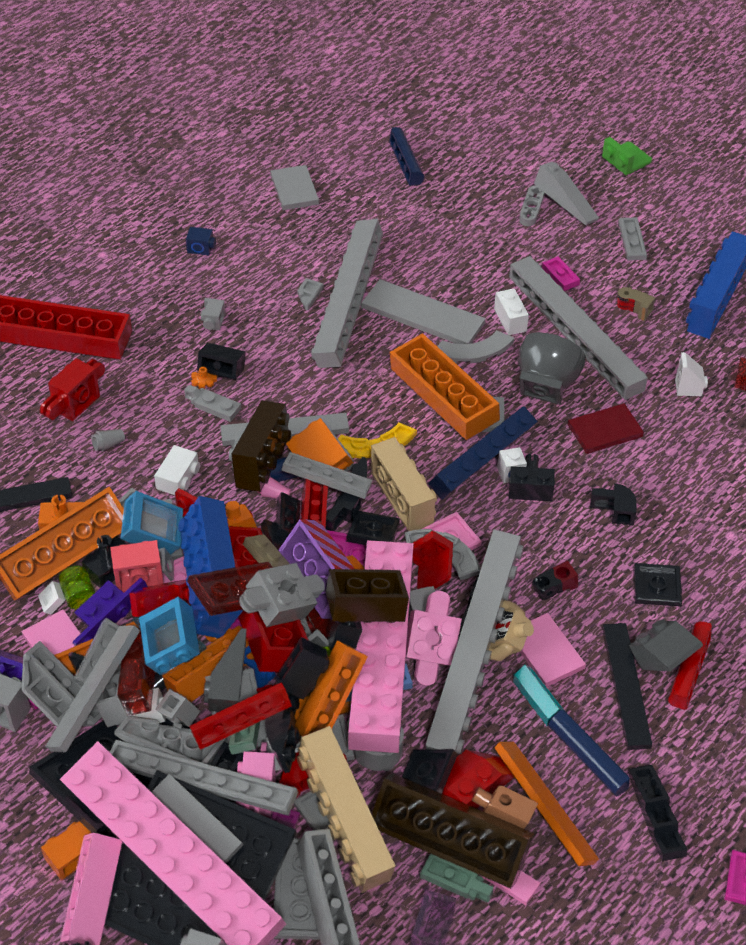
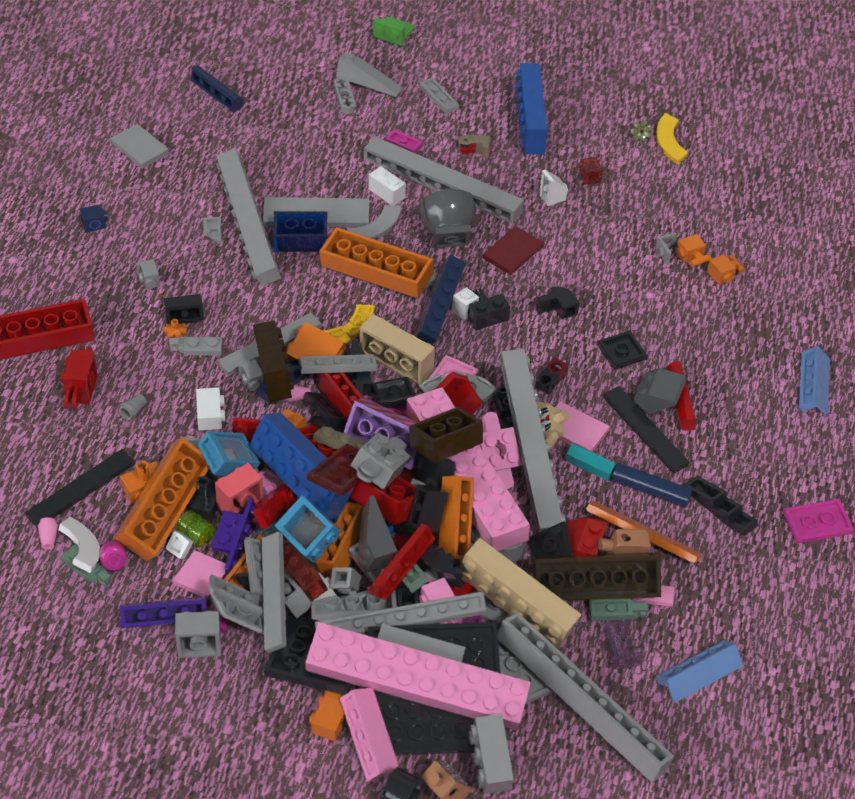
camera: 30 degrees left, 0 degrees up
(387, 323) = (300, 231): none -> clear blue brick

